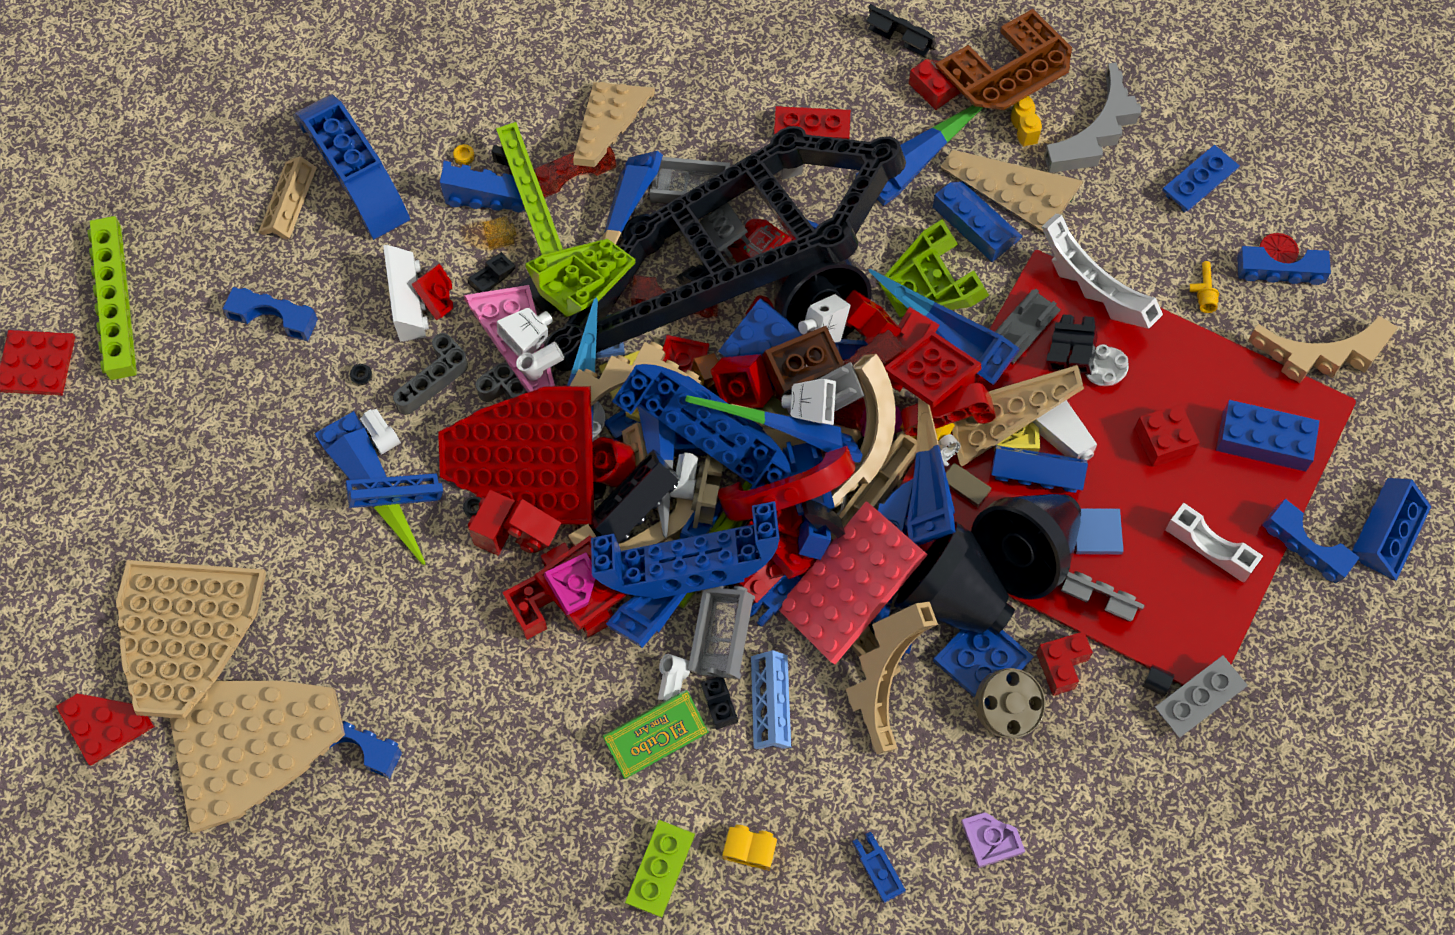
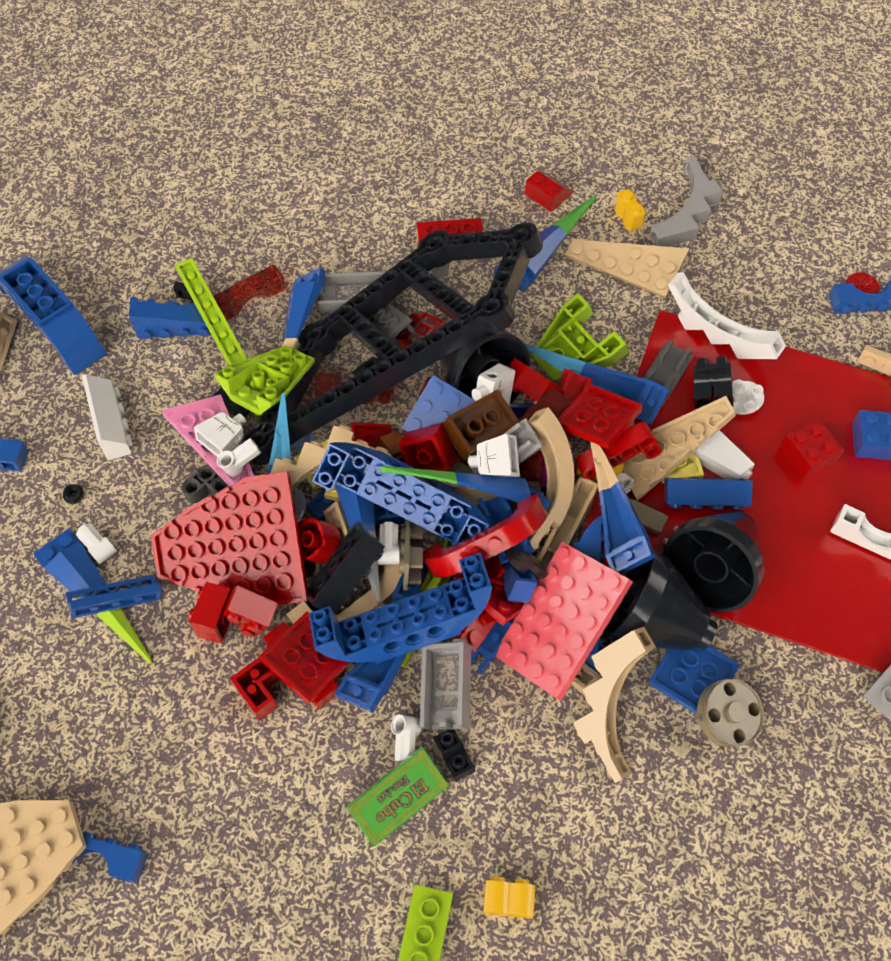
camera: 10 degrees left, 5 degrees down
(428, 378) = (137, 487): dark grey beam -> none
(434, 290) = (135, 410): red plate -> none
(463, 154) = (149, 292): yellow tile -> none
(469, 503) = (188, 598): black plate -> none
(495, 271) = (188, 388): black slope -> none
(499, 232) = (188, 354): clear yellow brick -> none
(572, 583) = (296, 659): dark pink plate -> none
(607, 115) = (270, 247): tan wing -> none
(775, 698) = (507, 742): light blue fence -> none
(879, 869) = (640, 899): blue hinge -> none
(885, 24) = (498, 148): black brick -> none
(975, 220) = (603, 293): blue slope -> none
(991, 839) = (741, 850): lavender plate -> none
(1042, 61) = (632, 162): dark orange slope -> none
(1059, 658) = (764, 665): red brick -> none
(1100, 532) = (776, 541): medium blue tile -> none
(1119, 604) = (806, 603): light grey brick -> none
(1158, 680) = (859, 670): black brick -> none
(1200, 178) = (784, 237): blue brick -> none
(1206, 295) = (813, 329): yellow piece -> none

